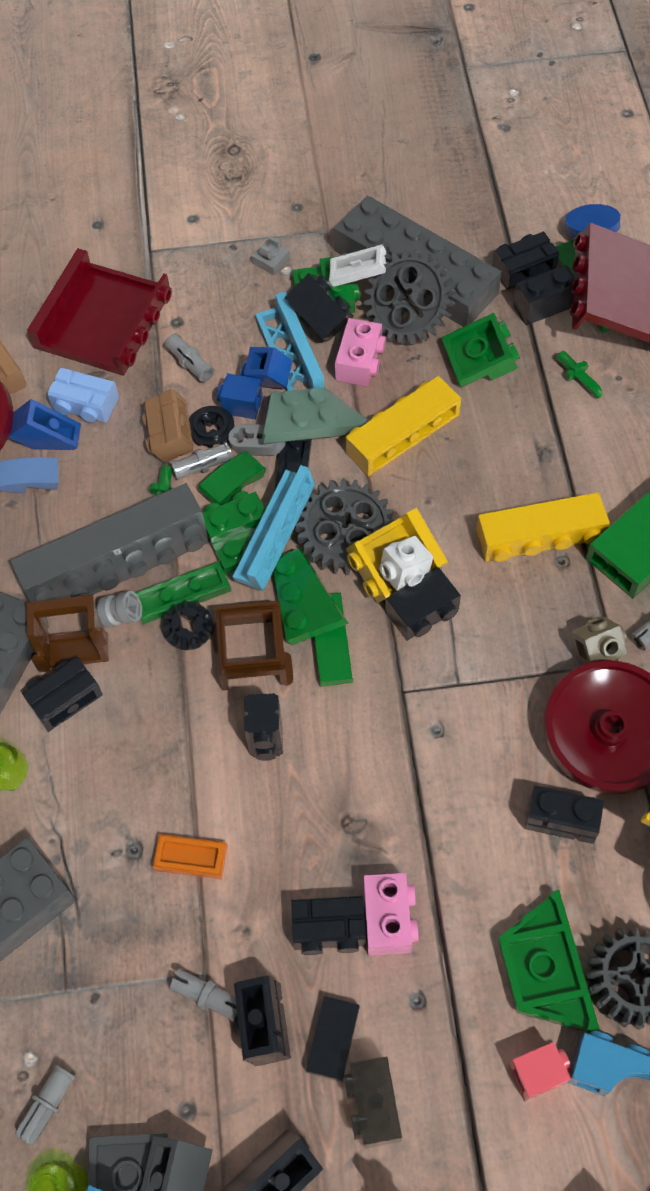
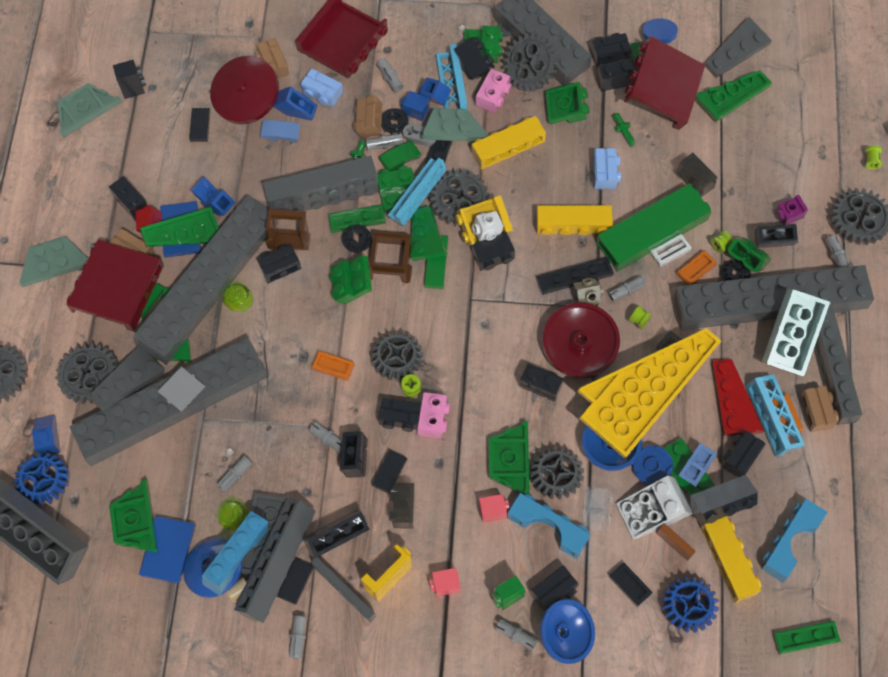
camera: 10 degrees right, 5 degrees up
(125, 608) = (320, 221): light grey wheel -> none
(192, 698) = (350, 279): none -> green plate
(263, 726) = (387, 303): black brick -> none
(271, 256) = (454, 17): light grey tile -> none
(281, 797) = (407, 345): none -> dark grey gear
(338, 874) = (411, 390): none -> lime wheel
(359, 265) = (502, 39): white tile -> none
(564, 617) = (566, 277): none -> black tile
(570, 437) = (605, 168): none -> light blue brick

